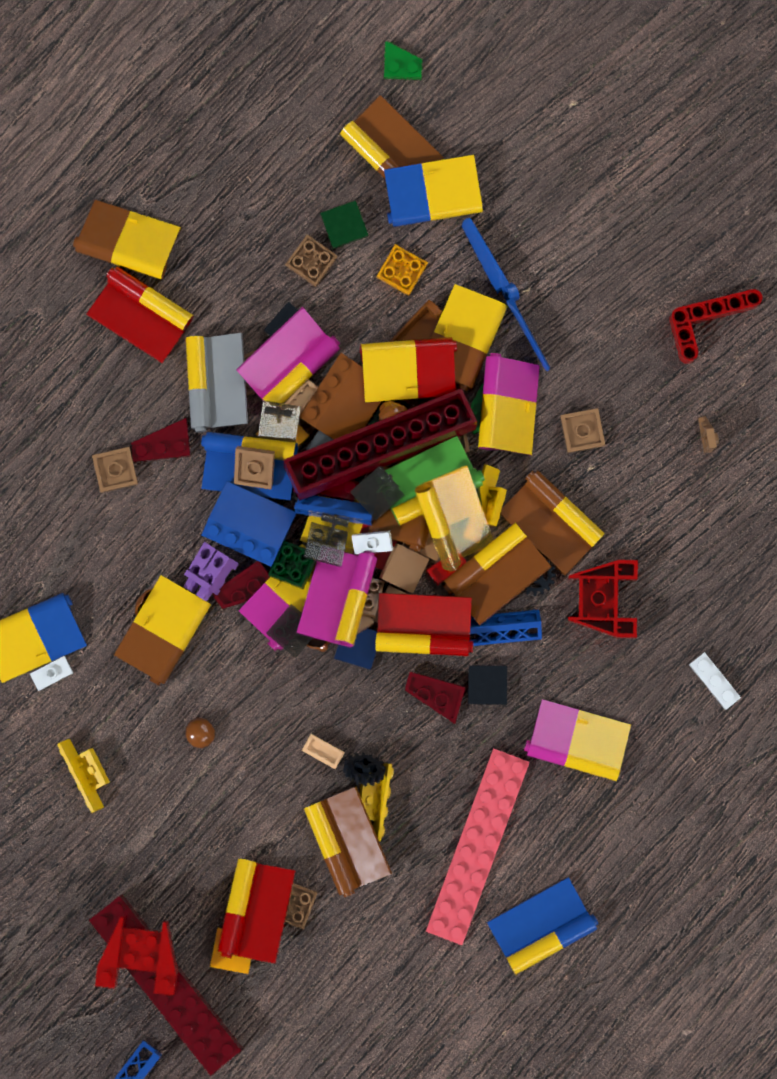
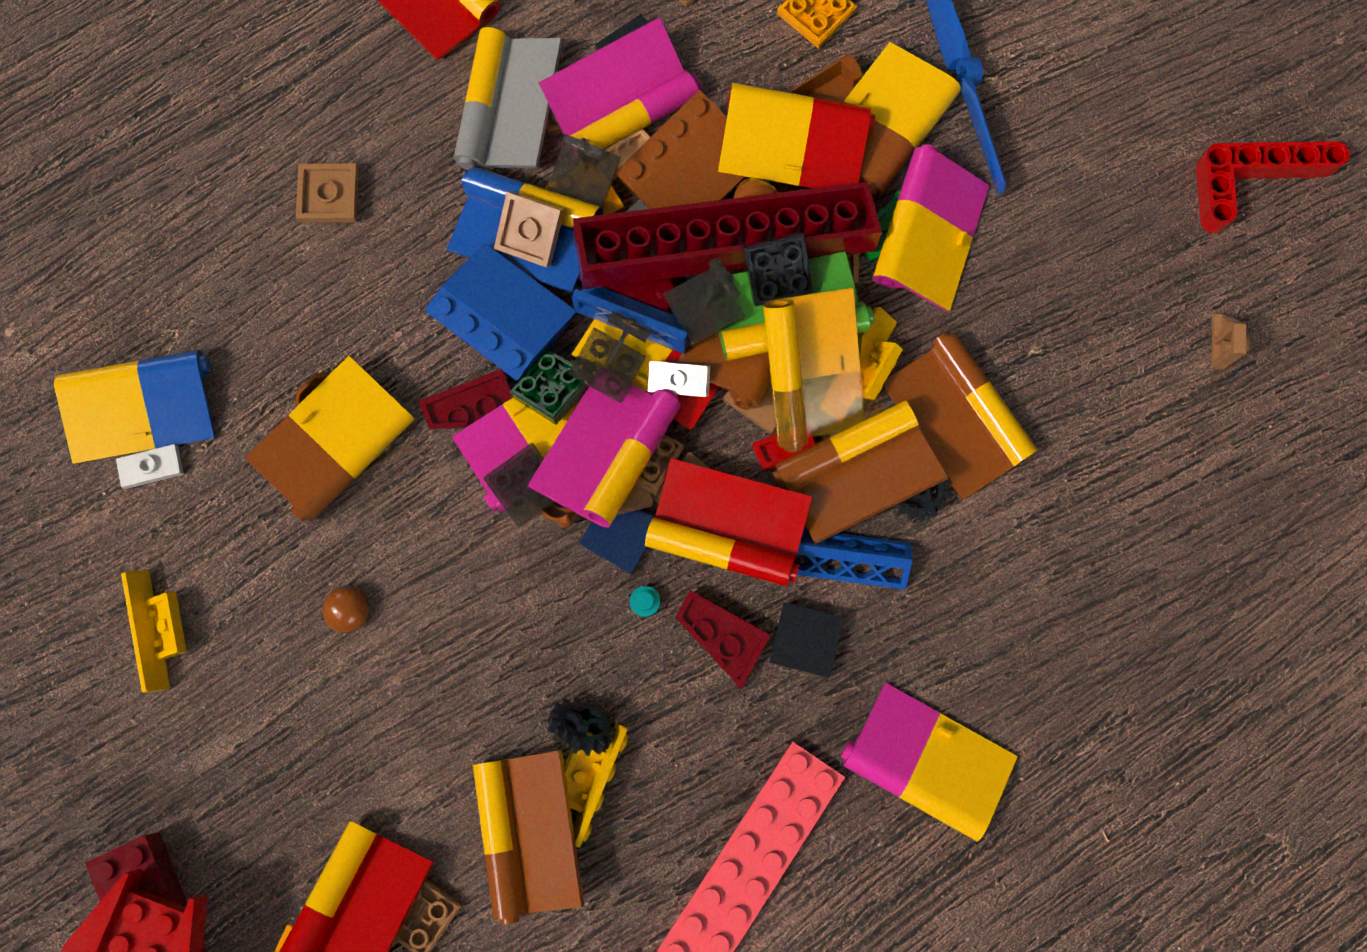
camera: 15 degrees right, 5 degrees down
(163, 444) = (408, 174): dark red wing -> none
(208, 570) = (421, 367): medium lavender hips -> none
(323, 751) = (526, 682): light nougat plate -> none
(383, 684) = (644, 601): none -> teal plate
(404, 568) = (718, 430): medium nougat tile -> none
(417, 460) = (778, 268): none -> black tile
(582, 430) = (1035, 292): medium nougat plate -> none
(600, 598) = (1011, 549): red wedge -> none
(714, 681) = (1164, 719): white plate -> none

